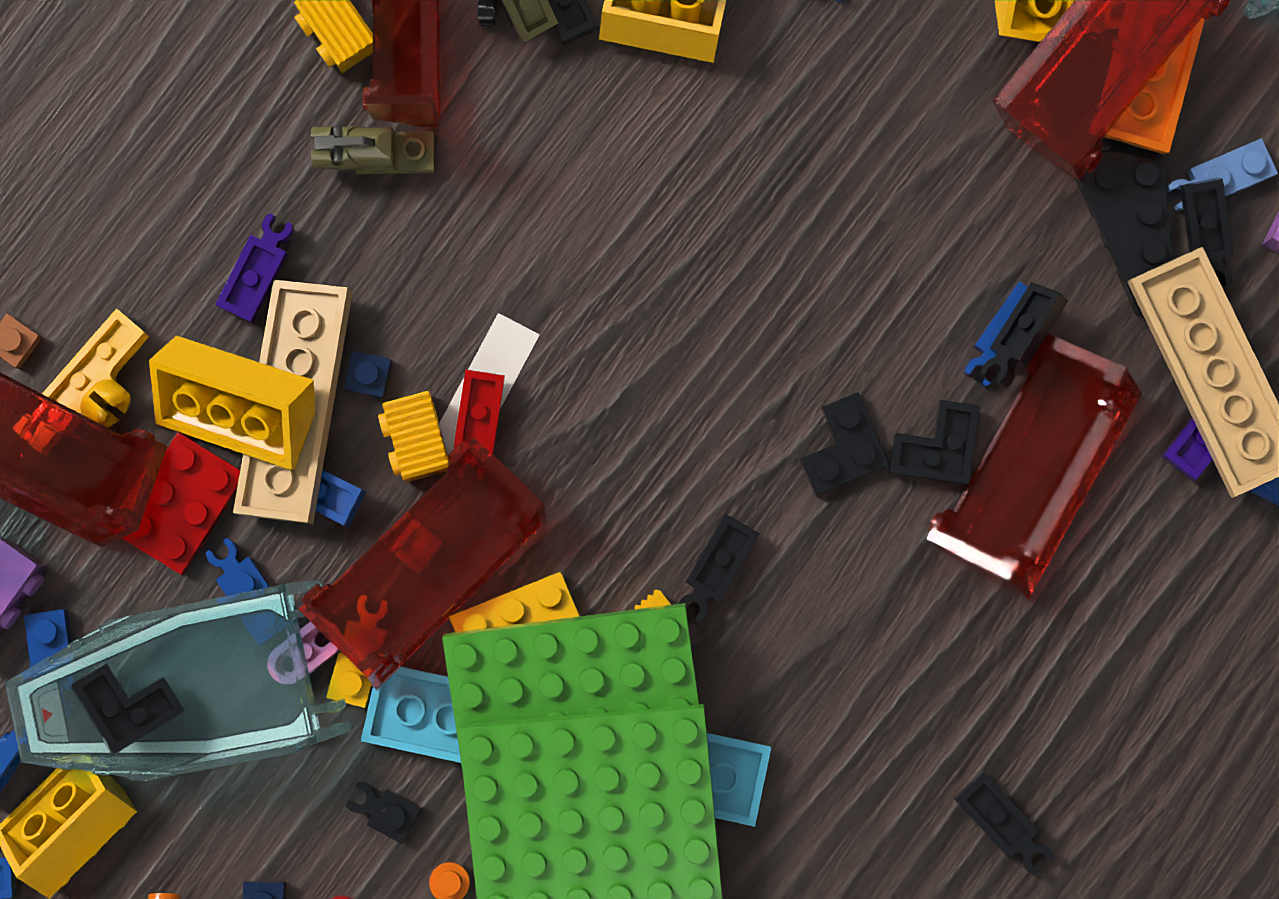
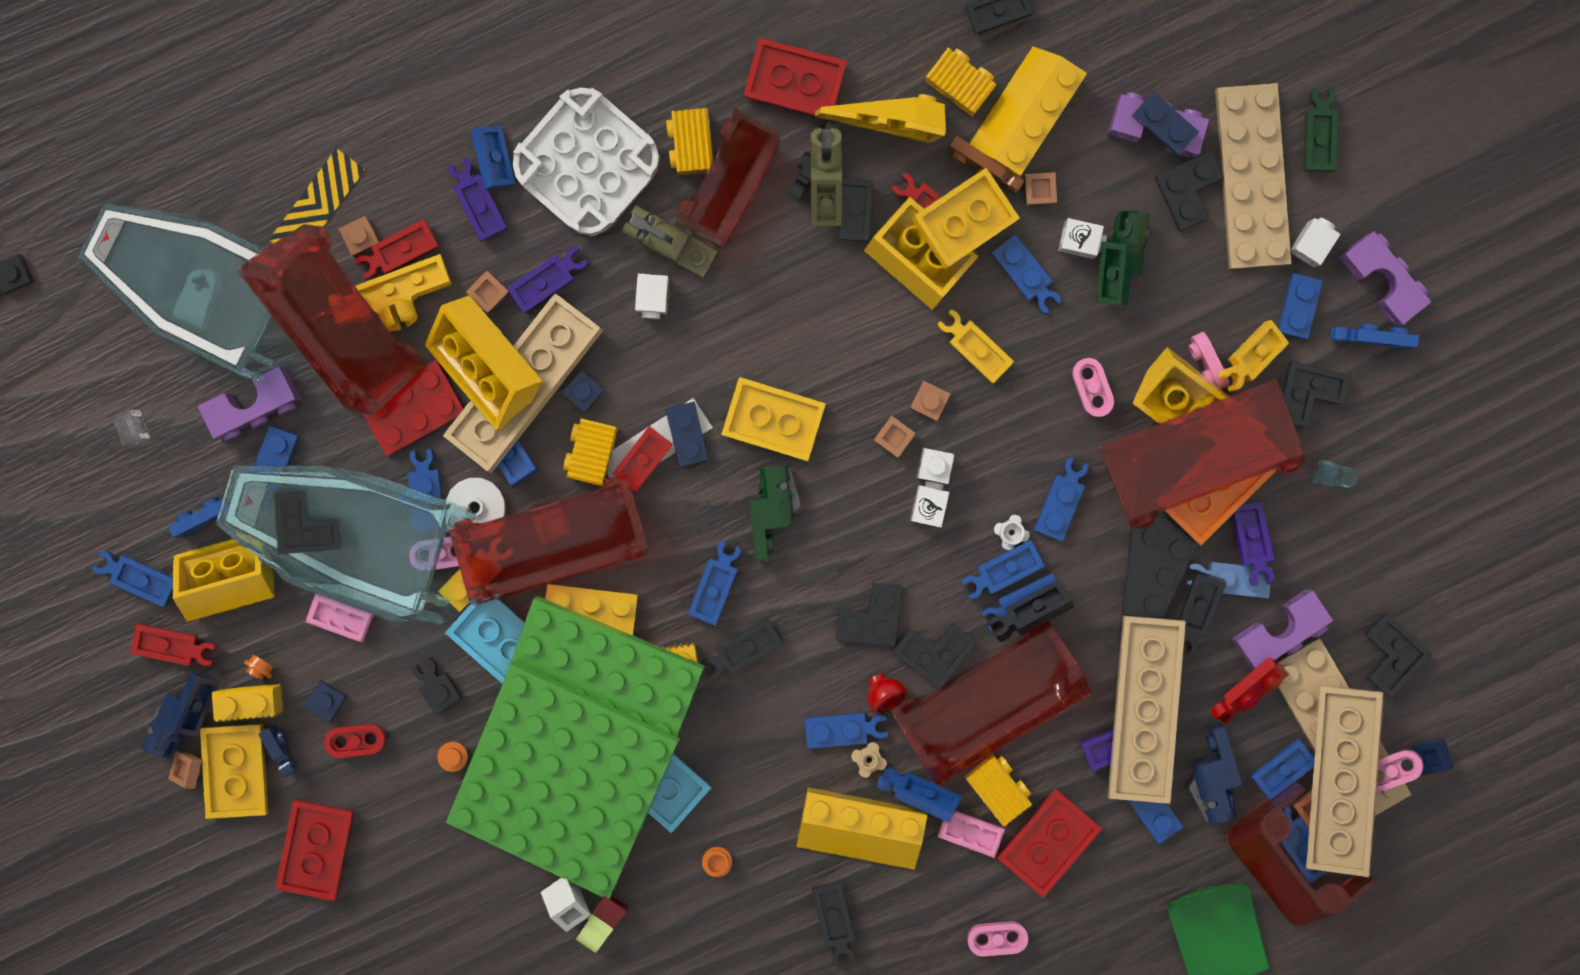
camera: 35 degrees right, 5 degrees up
(67, 330) = (400, 249): none -> red plate
(118, 166) = (493, 157): none -> blue plate
(129, 227) = (478, 203): none -> dark purple plate
(196, 321) = (487, 292): none -> nougat plate
(227, 793) = (339, 618): none -> bright pink plate
(228, 113) = (586, 161): none -> white plate
(310, 555) = (481, 491): none -> white plate
(386, 220) = (652, 295): none -> white brick
(514, 356) = (686, 434): none -> dark blue plate
(603, 284) = (773, 419): none -> yellow plate
(643, 512) = (714, 586): none -> blue plate
(661, 384) = (775, 507): none -> dark green plate
(752, 227) = (894, 436): none -> nougat plate
(769, 166) = (930, 400): none -> nougat plate
(788, 77) = (977, 348): none -> yellow plate
(817, 233) = (935, 466): none -> white brick
(826, 831) = (717, 861): none -> orange plate
(836, 281) = (930, 504): none -> white brick
(882, 596) = (841, 729): none -> blue plate
(908, 524) = (884, 693): none -> red brick
(935, 623) = (860, 757): none -> tan plate
(943, 251) = (1003, 529): none -> white plate
(946, 47) = (1095, 386): none -> bright pink plate
(964, 306) = (1005, 569): none -> blue plate
(972, 696) = (861, 828): none -> yellow slope
(982, 197) = (1061, 502): none -> blue plate
(1015, 616) = (920, 793): none -> blue plate
(1099, 629) = (972, 833): none -> bright pink plate
(1102, 561) = (998, 789): none -> yellow brick
(1194, 590) = (1049, 842): none -> red plate
(1199, 735) = (997, 938): none -> bright pink plate
(1225, 118) = (1253, 541): none -> dark purple plate

